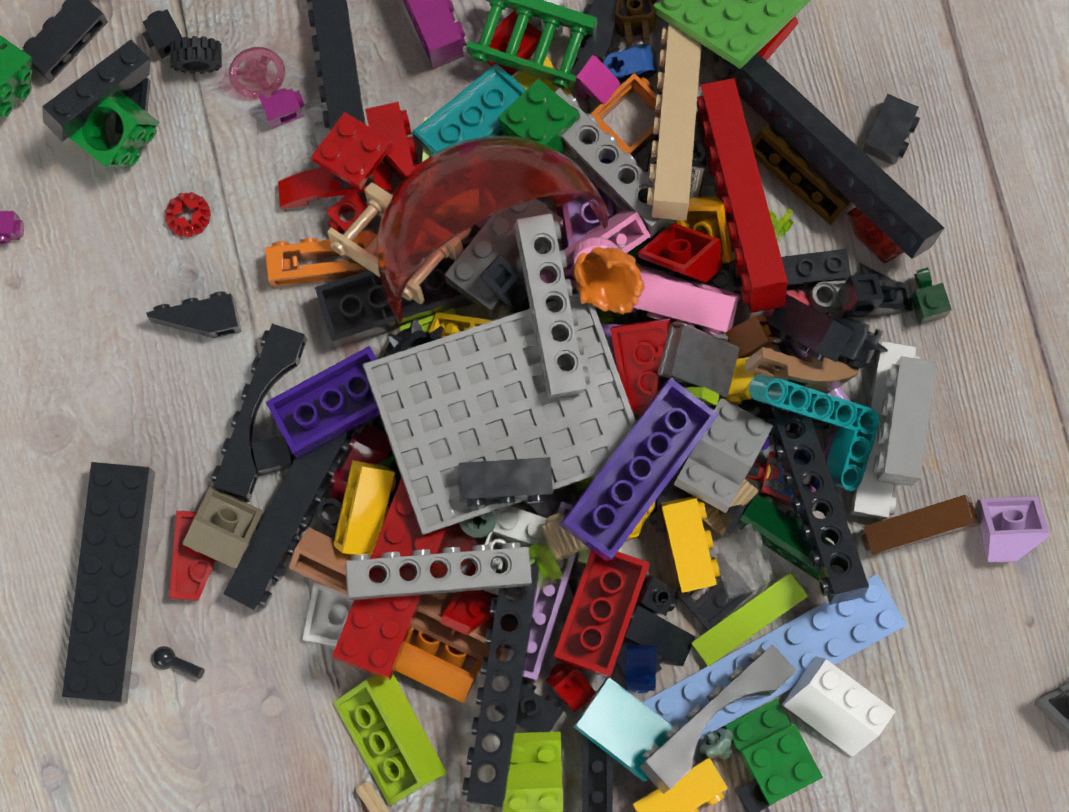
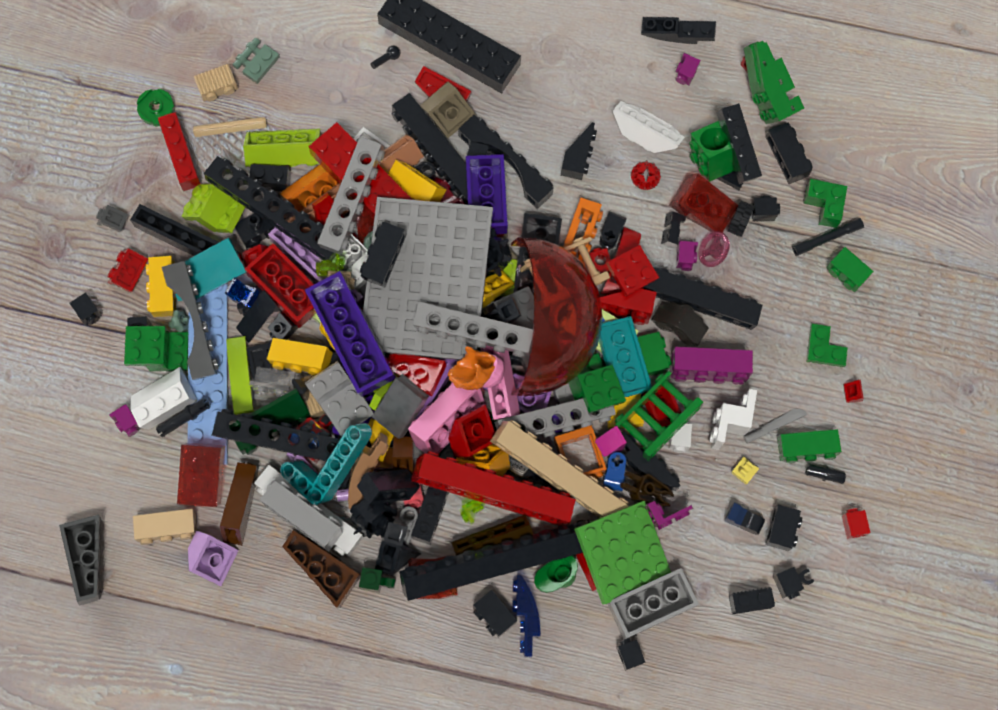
camera: 110 degrees right, 5 degrees down
(118, 237) = (646, 128): none -> white wedge
(195, 117) = (703, 203): none -> clear red slope
(251, 137) = (675, 227): none -> black piece
(287, 221) = (612, 228): none -> black piece
(383, 69) = (681, 321): none -> clear smoke brick
(443, 85) = (654, 354): none -> green brick
(446, 729) = (272, 177): none -> black brick
(805, 72) = (556, 574): none -> green piece
(839, 654) = (189, 413): none -> black pin
(863, 93) = (526, 607): none -> clear blue slope
(892, 741) = (125, 420): none -> magenta brick
(914, 593) = (201, 474): none -> clear red brick
(956, 349) = (327, 571): none -> reddish brown wedge
(1002, 609) = (164, 526): none -> tan brick

